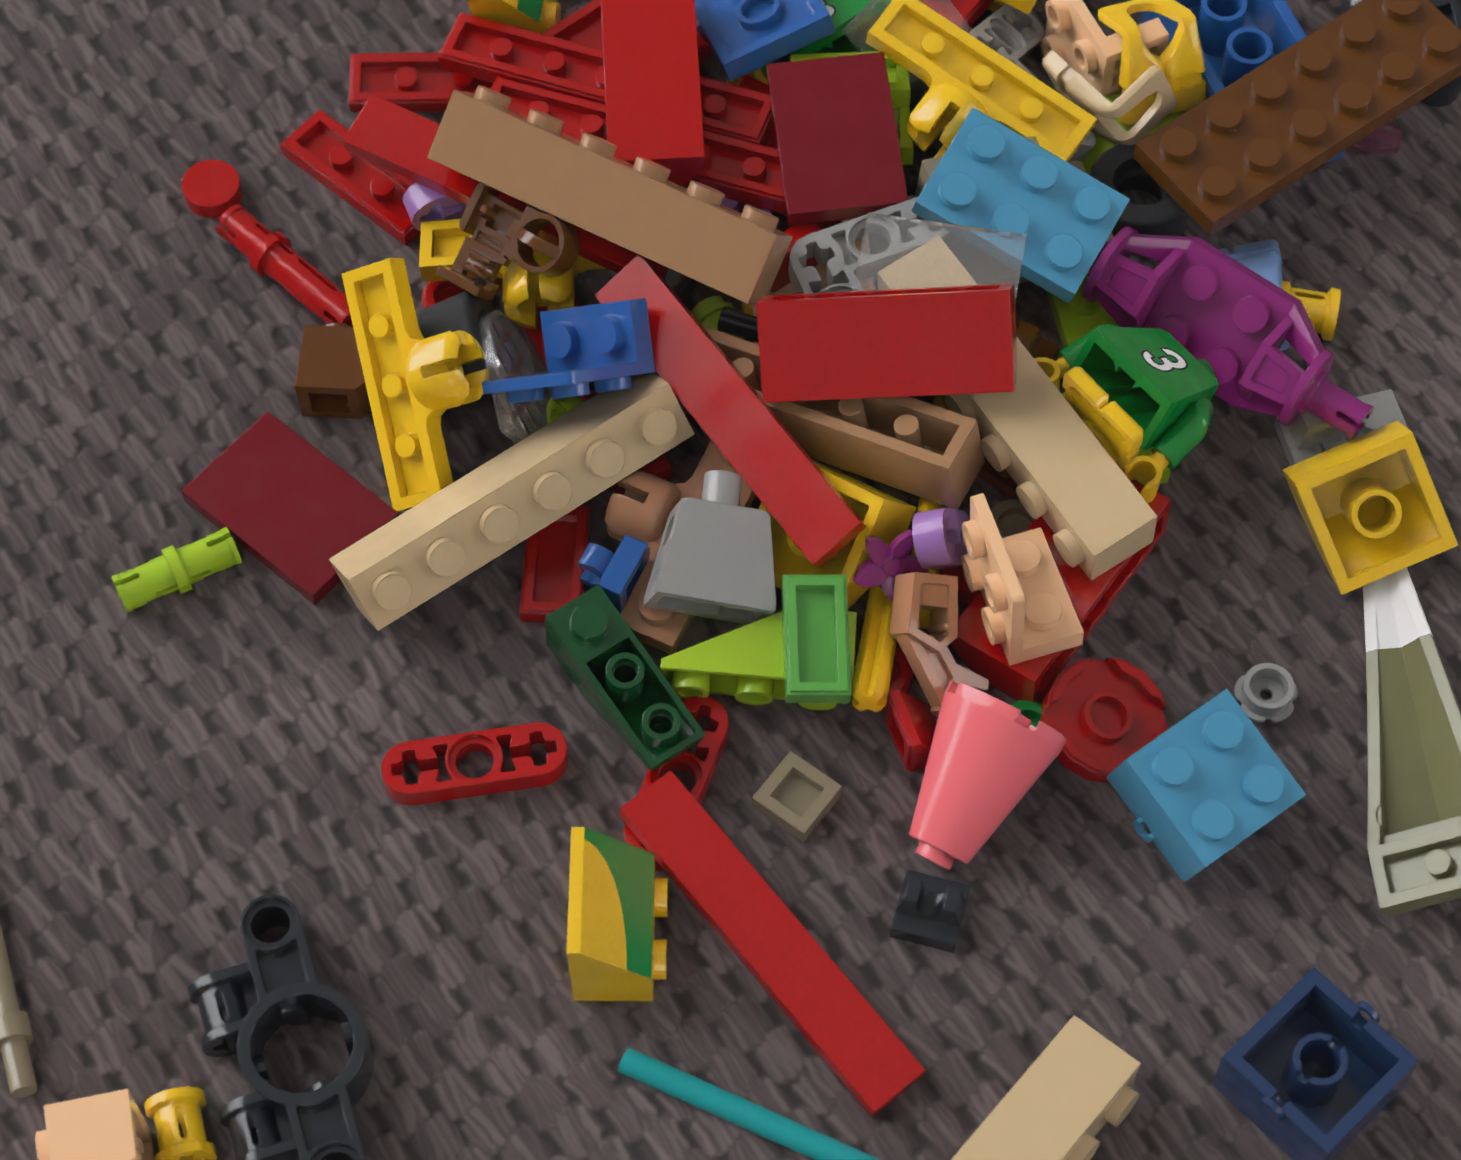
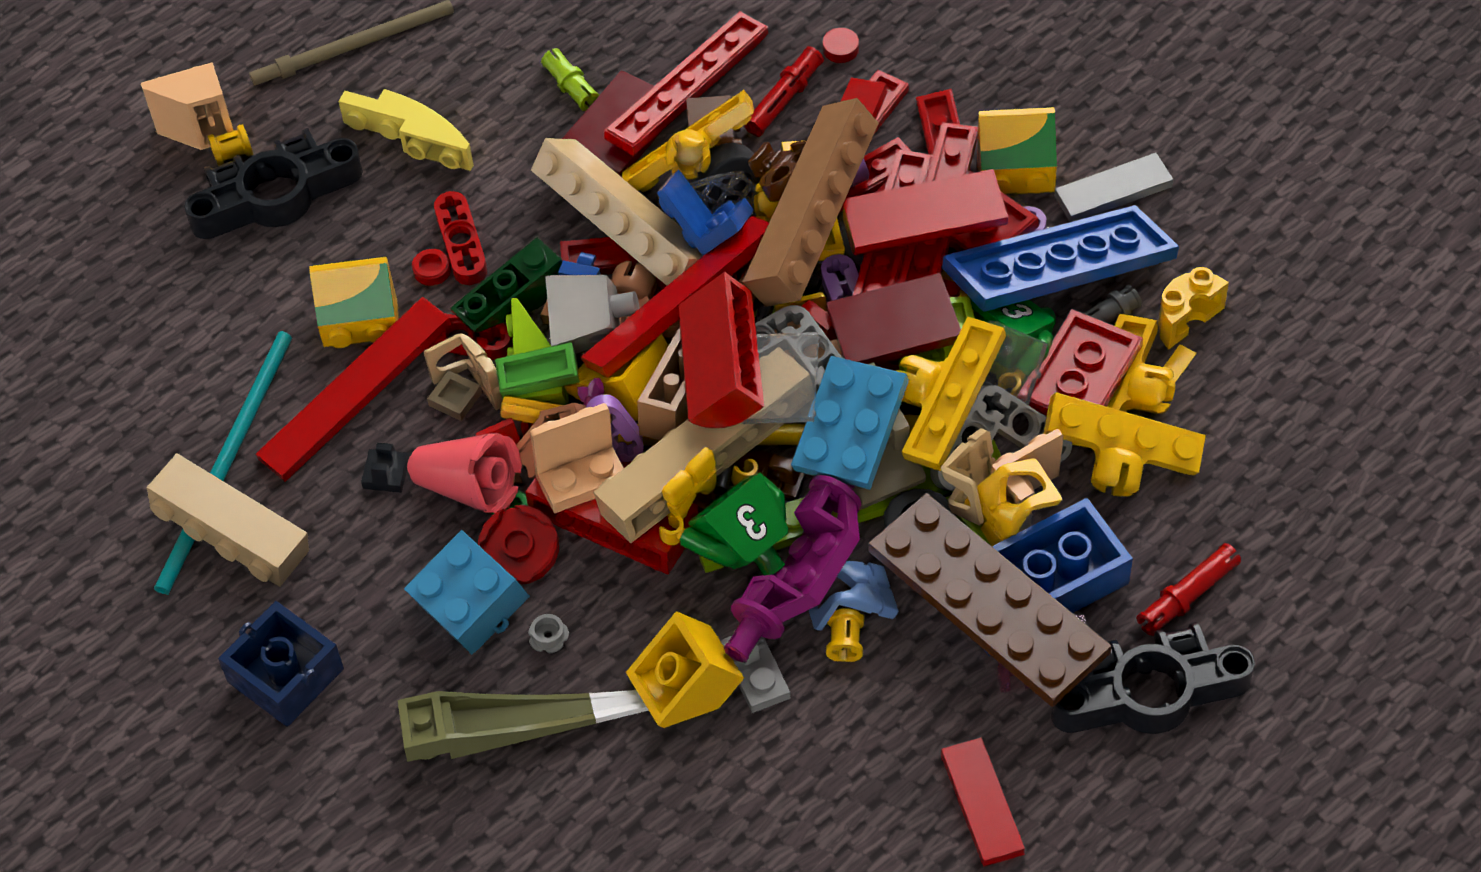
camera: 85 degrees right, 5 degrees down
(234, 799) = (419, 127): none -> light yellow slope
(243, 398) = (687, 80): none -> red tile
(524, 815) = (431, 267): none -> red tile
(769, 740) = (478, 364): none -> tan piece

